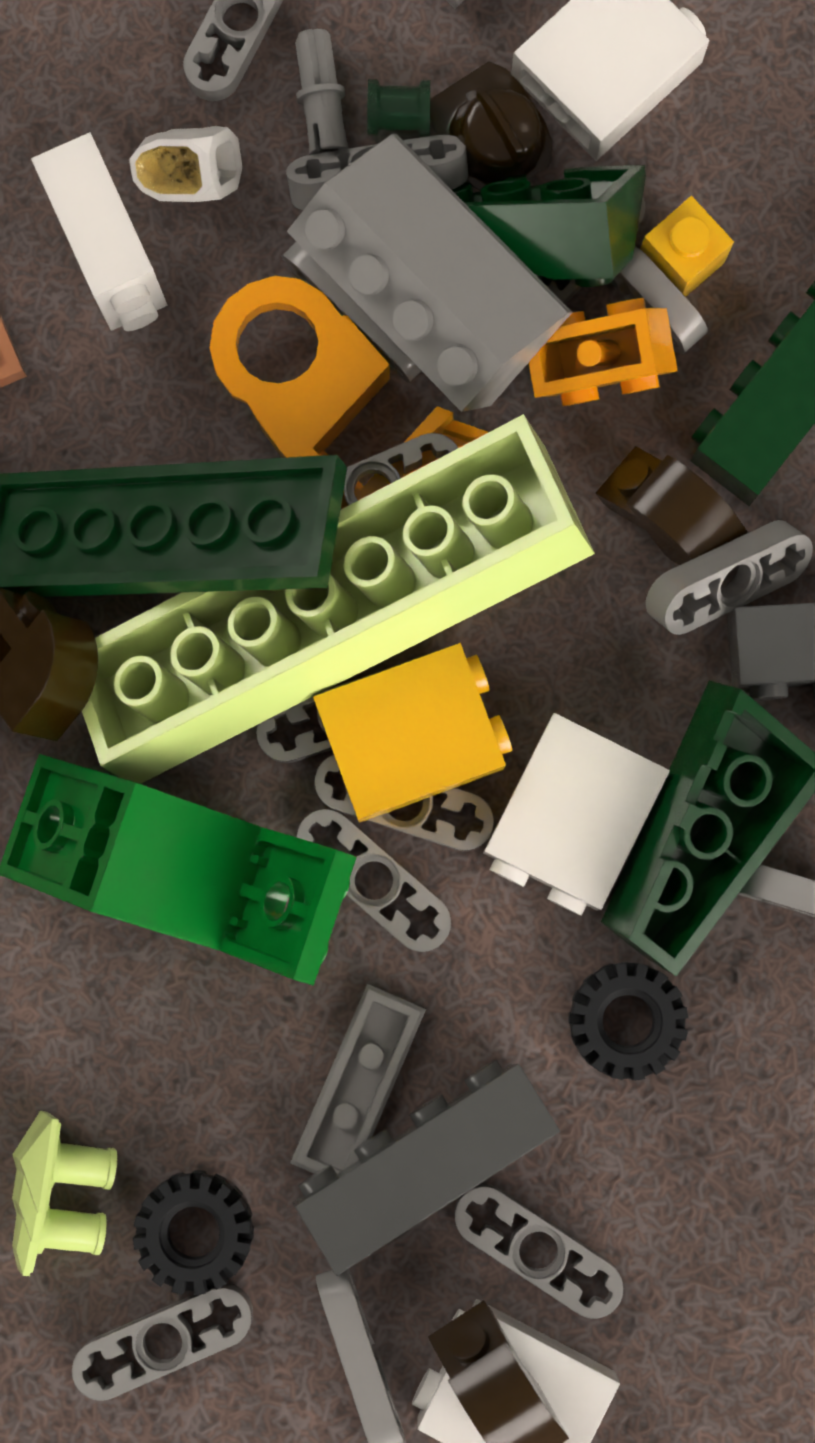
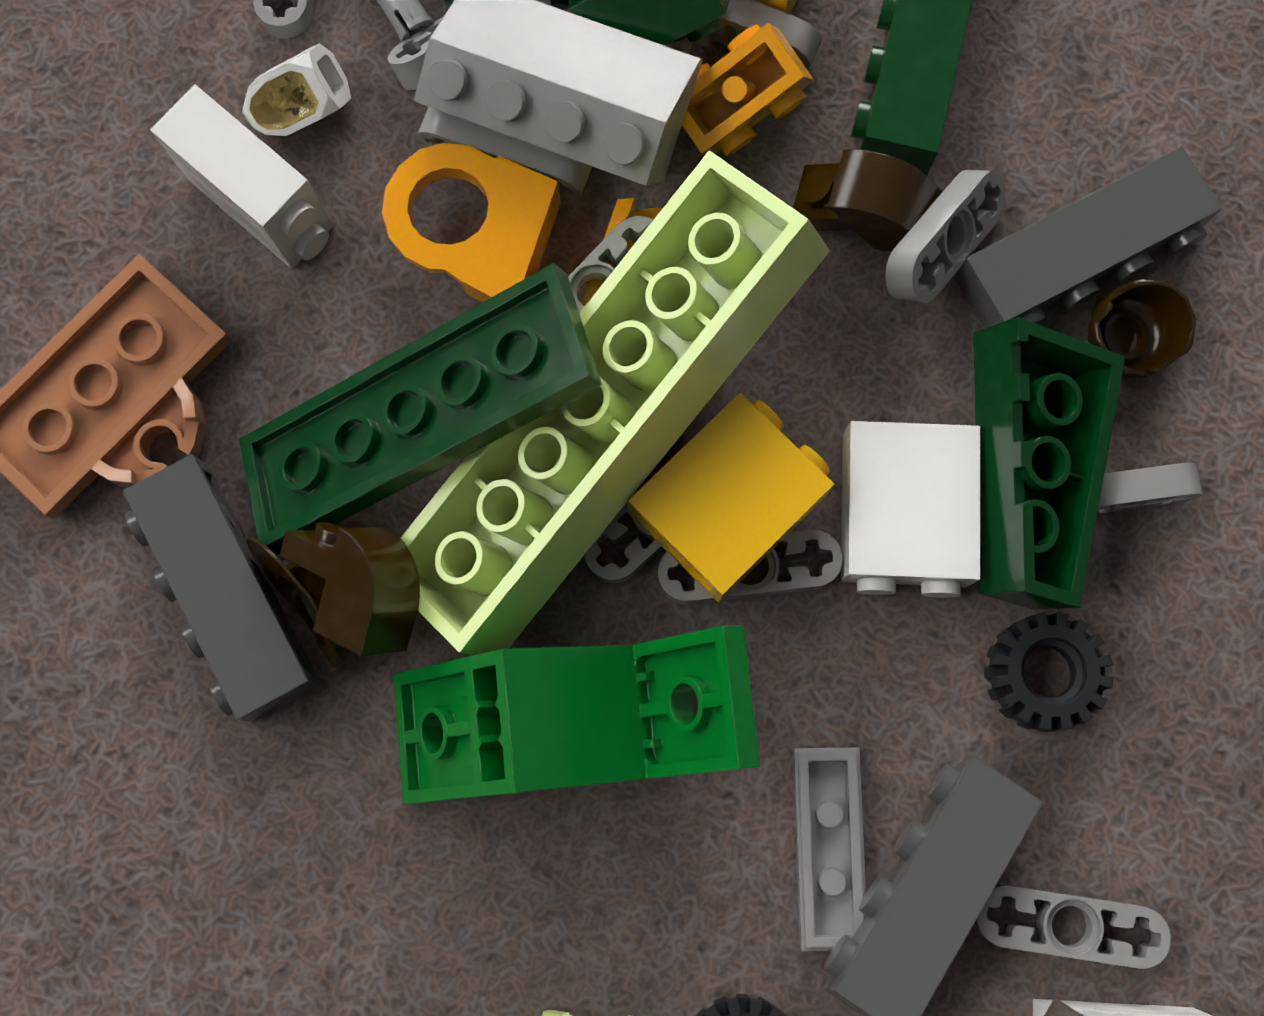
camera: 25 degrees left, 5 degrees down
(420, 900) = (806, 649): light grey beam -> none

